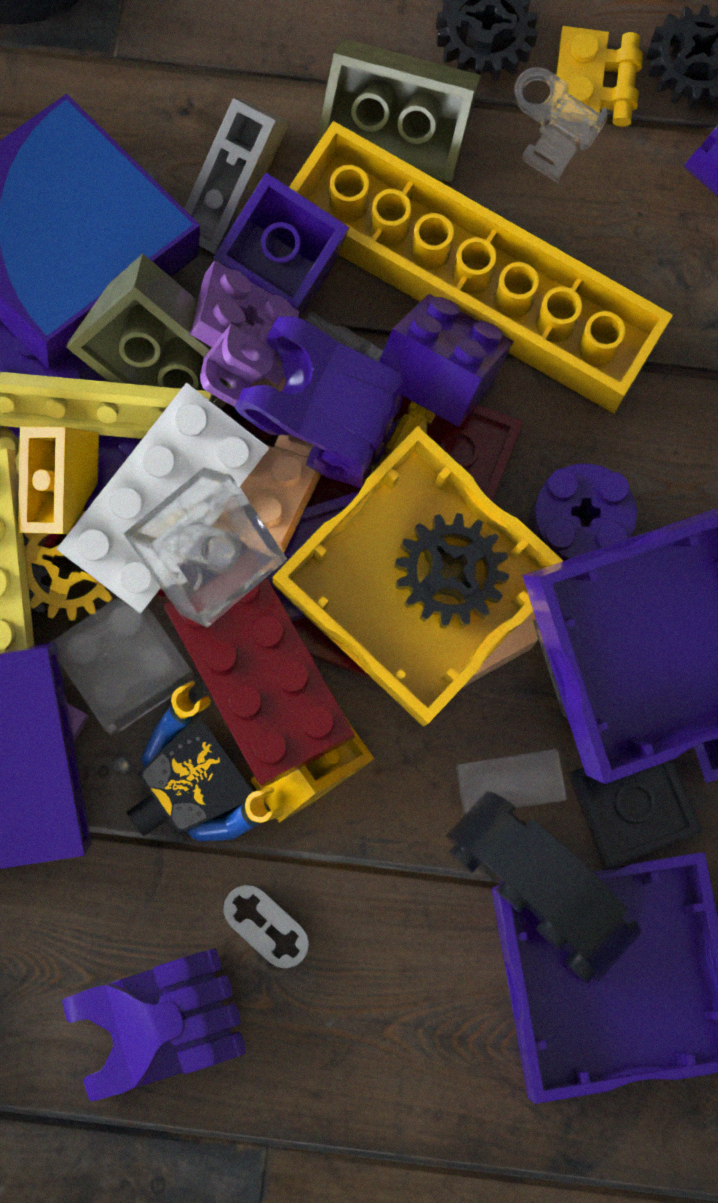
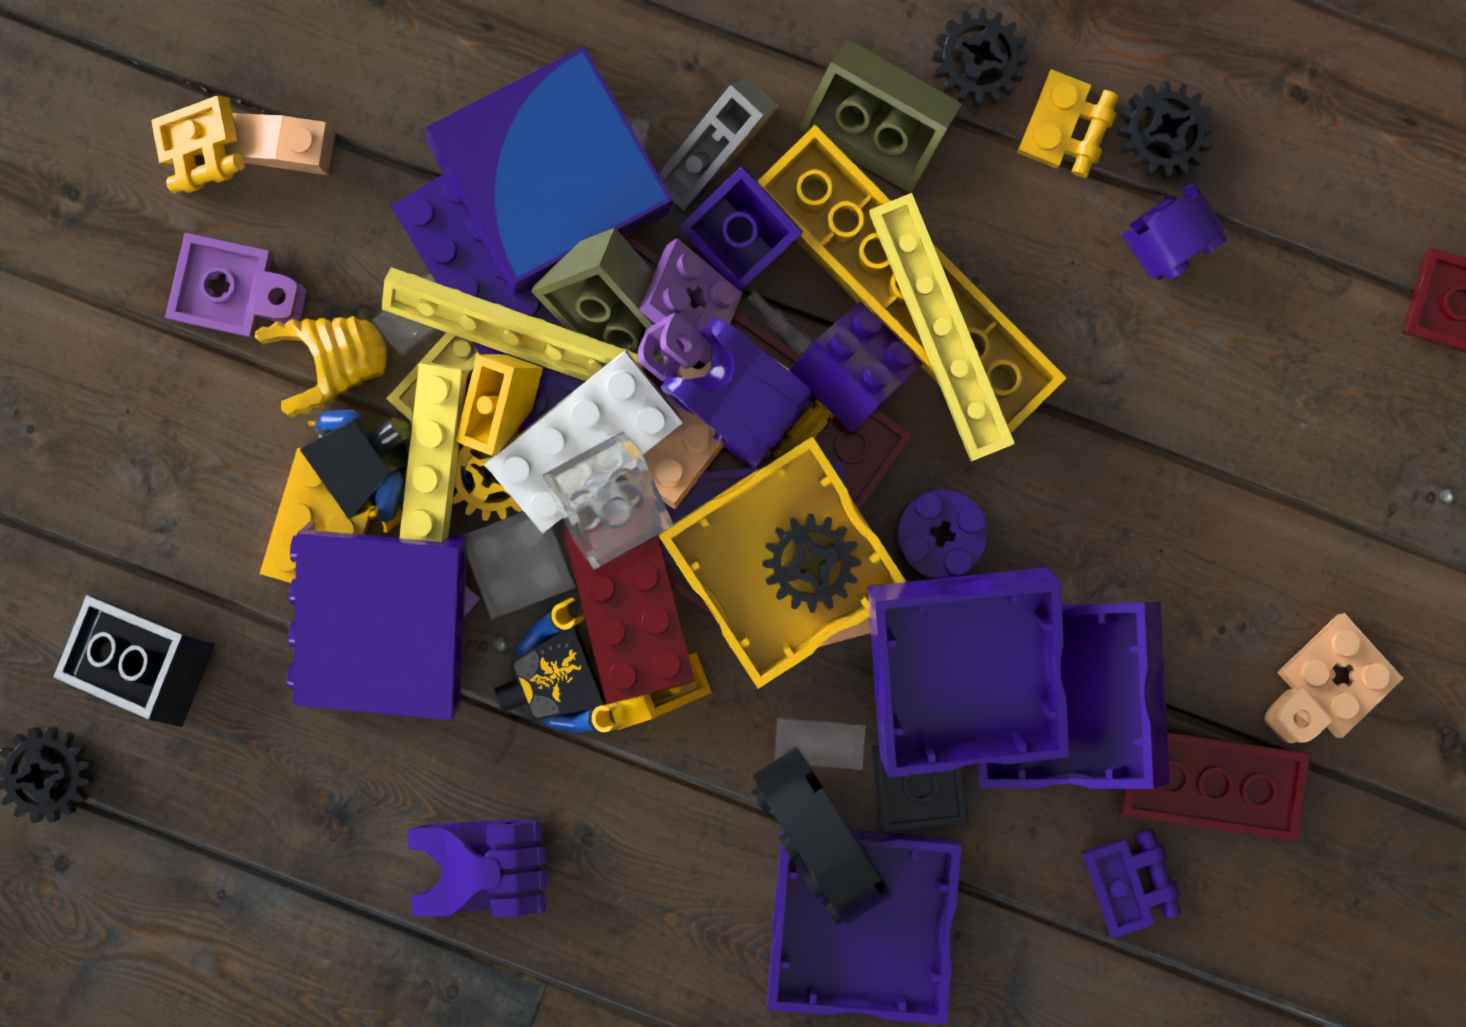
camera: 20 degrees right, 10 degrees up
(256, 936) = (578, 815): light grey beam -> none
(526, 290) = (941, 327): none -> light yellow plate
(567, 124) = (1028, 167): clear piece -> none

